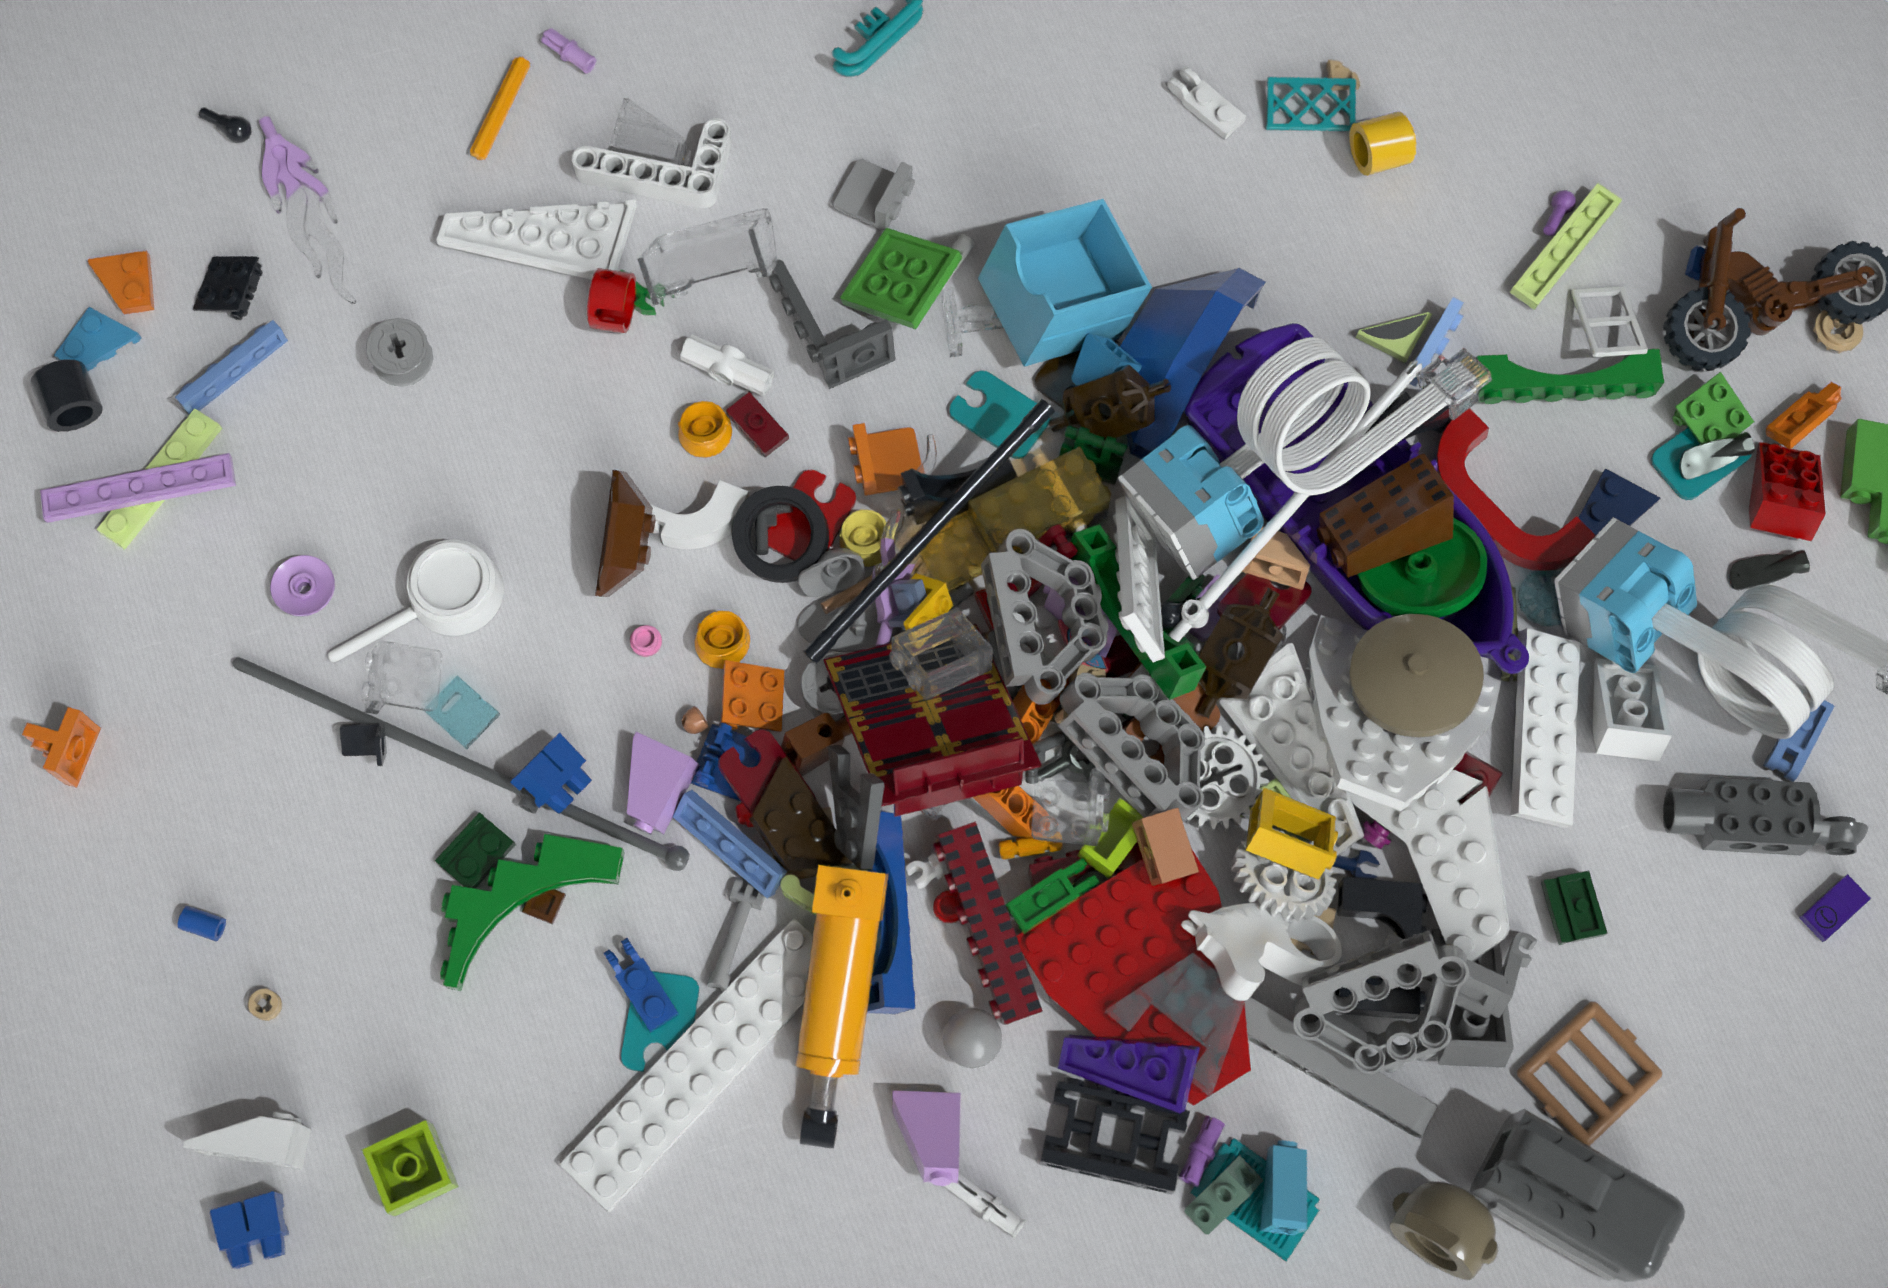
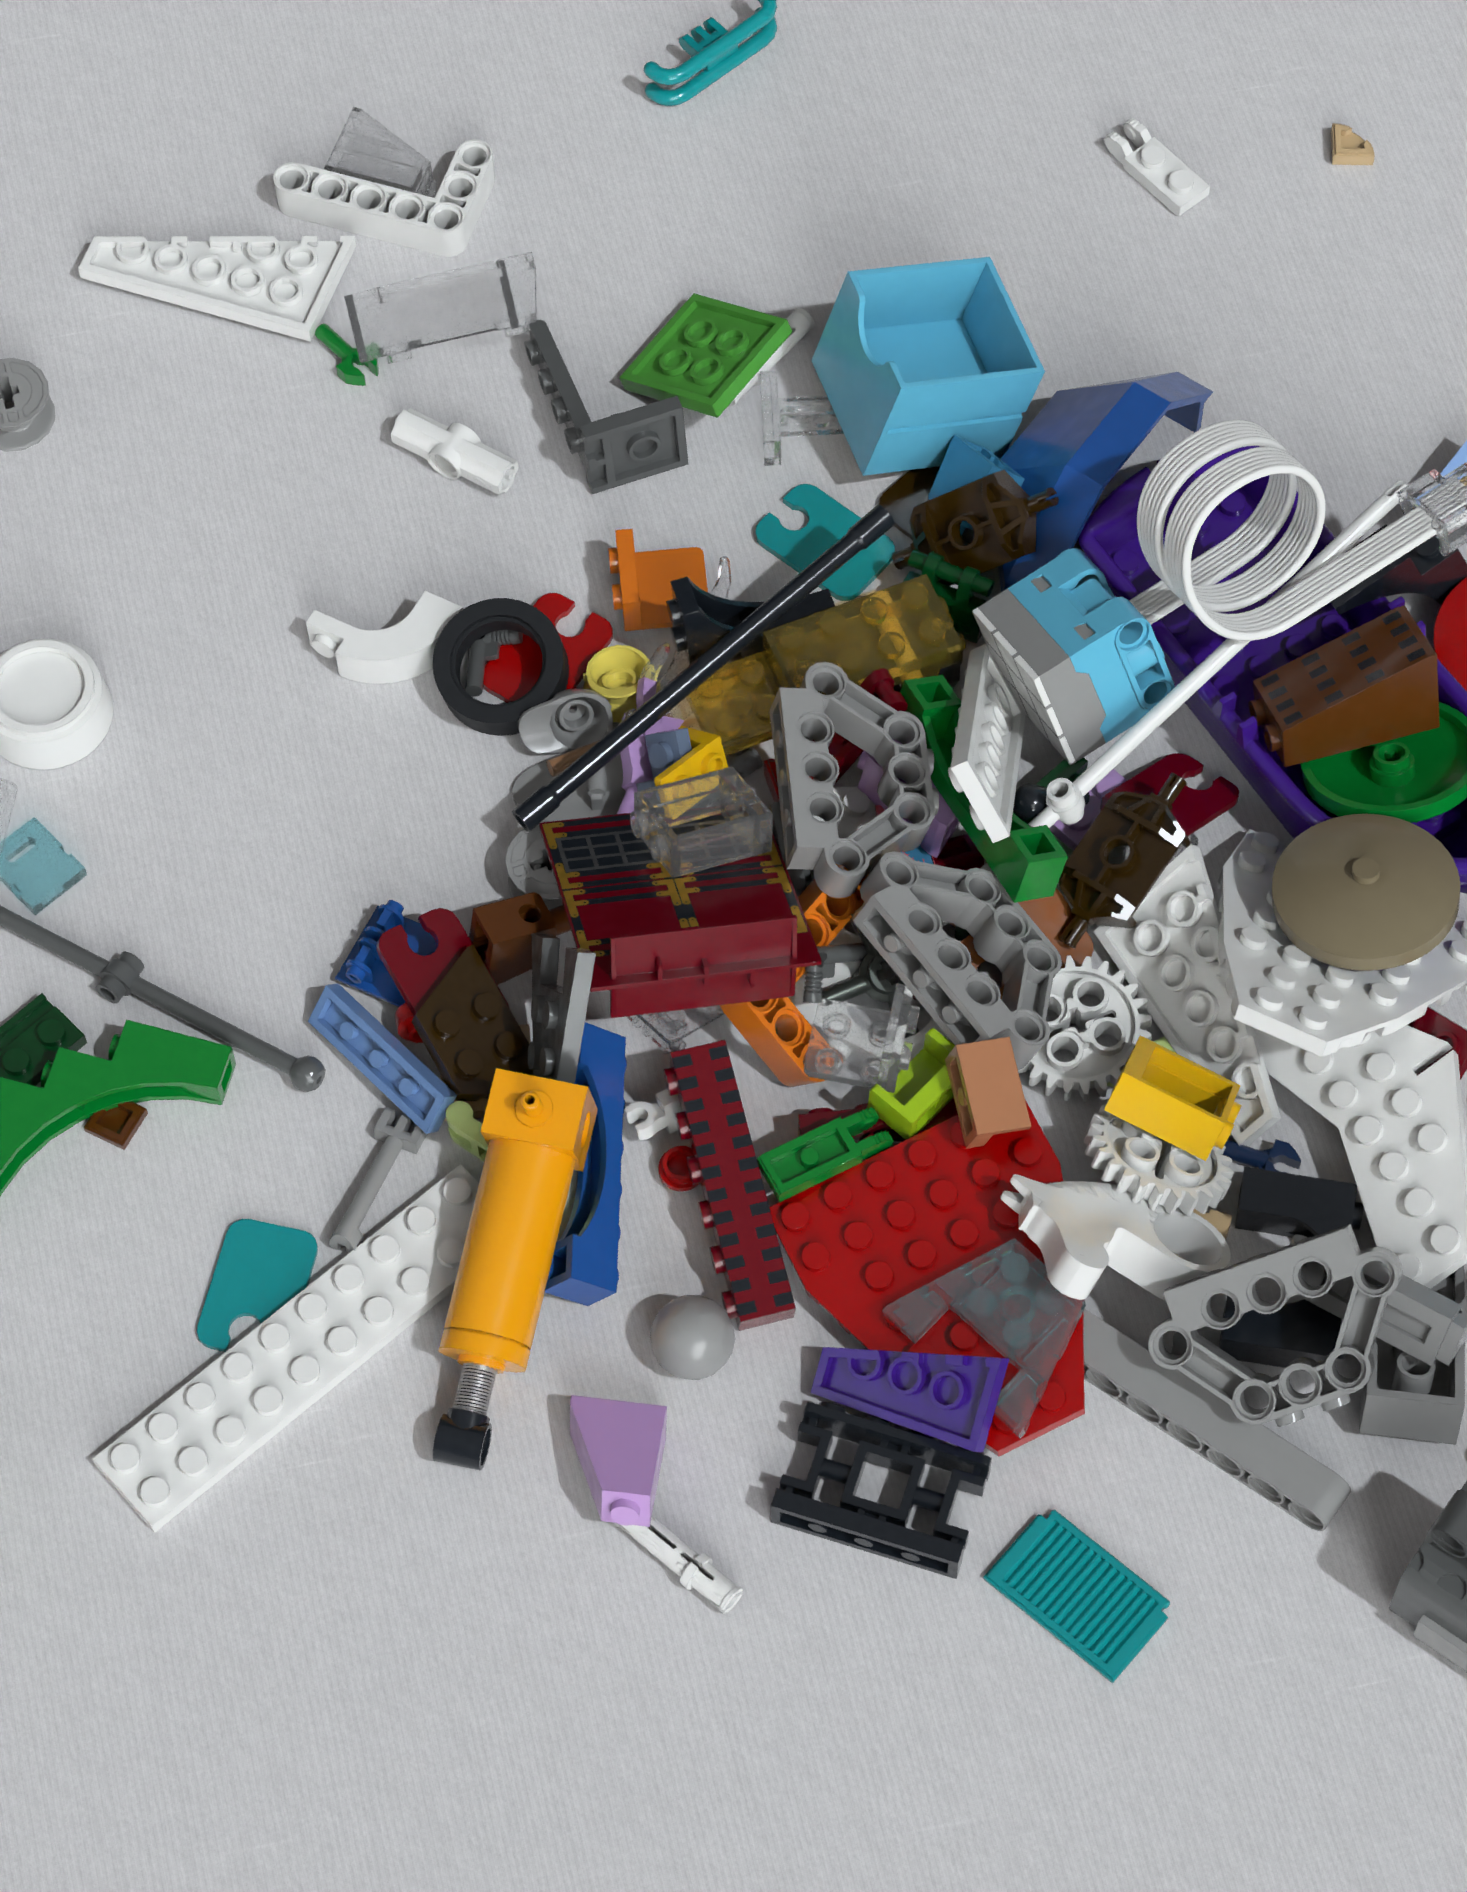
camera: 10 degrees right, 10 degrees down
(500, 108) = (185, 114): light orange axle -> none
(551, 769) = (145, 942): blue hips -> none
(569, 50) = (288, 49): lavender axle -> none
(611, 300) = (305, 355): red piece -> none
(625, 535) = (285, 651): reddish brown wedge -> none
(642, 989) = (238, 1238): blue hinge -> none
(645, 640) = (299, 792): bright pink plate -> none
(657, 783) = (290, 971): lavender slope -> none
(694, 721) = (352, 900): nougat hinge -> none
(704, 429) = (413, 530): light orange piece -> none
(721, 638) = (404, 798): light orange piece -> none
(752, 696) = (437, 871): orange hinge -> none
(757, 424) = (487, 530): dark red plate -> none
(875, 193) = (683, 249): light grey bracket -> none
(1026, 847) = (804, 1097): light orange axle -> none
(1201, 1151) = (1004, 1520): medium lavender pin -> none
(1223, 1195) = (1027, 1578): sand green bracket -> none
(1280, 562) = (1192, 749): light nougat slope -> none
(1285, 1189) = (1116, 1577): medium azure slope -> none
(1325, 84) = (1326, 154): teal window -> none
(1376, 834) = (1300, 1119): magenta plate -> none
(1382, 143) = (1396, 228): yellow piece -> none
(1396, 337) = (1377, 476): tile -> none
(1446, 1228) = (1343, 1645): dark tan piece -> none

